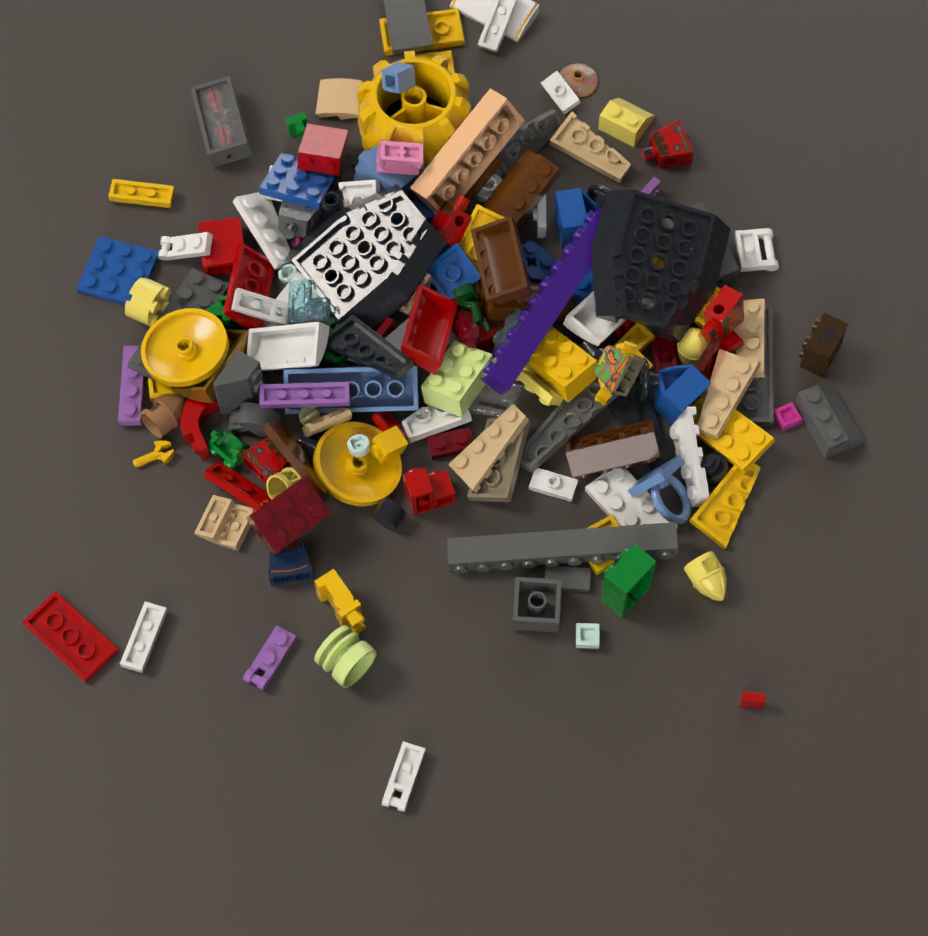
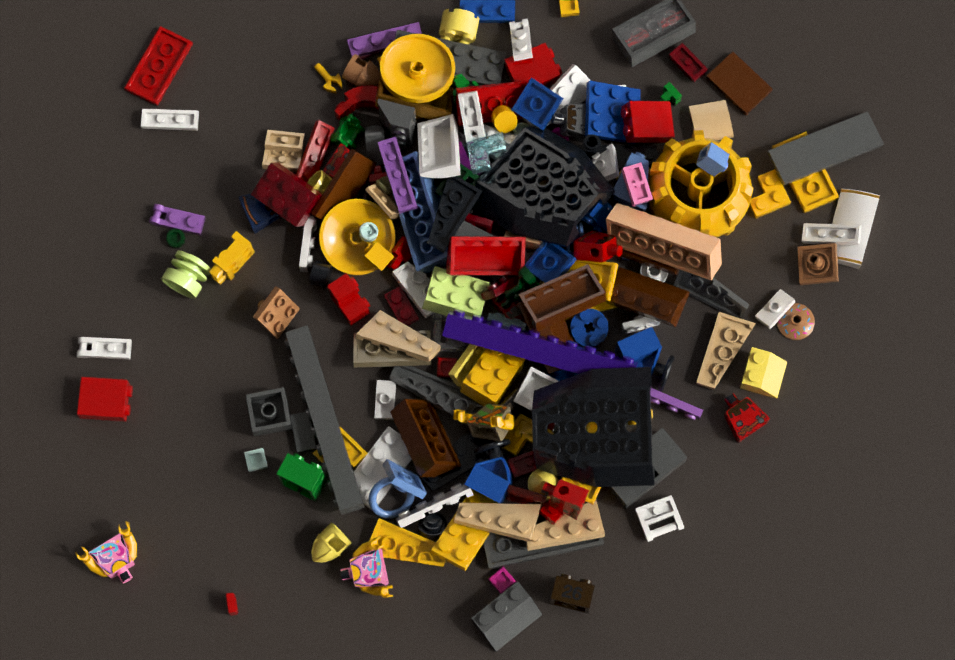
camera: 75 degrees right, 10 degrees up
(267, 102) = (688, 62): none -> dark red plate
(268, 241) = (537, 103): none -> blue plate
(271, 282) = (504, 119): none -> yellow piece
(292, 666) = (175, 238): none -> dark green tile
(294, 426) = (377, 174): none -> red tile
(306, 64) = (739, 83): none -> reddish brown tile
(347, 520) = (308, 242): none -> white plate
(420, 570) = (276, 312): none -> medium nougat plate
(467, 789) = (104, 399): none -> red brick
(525, 41) = (818, 264): none -> medium nougat plate
(535, 413) = (445, 366): none -> red tile
(664, 820) = (113, 556): none -> torso
(747, 541) = (368, 569): none -> torso

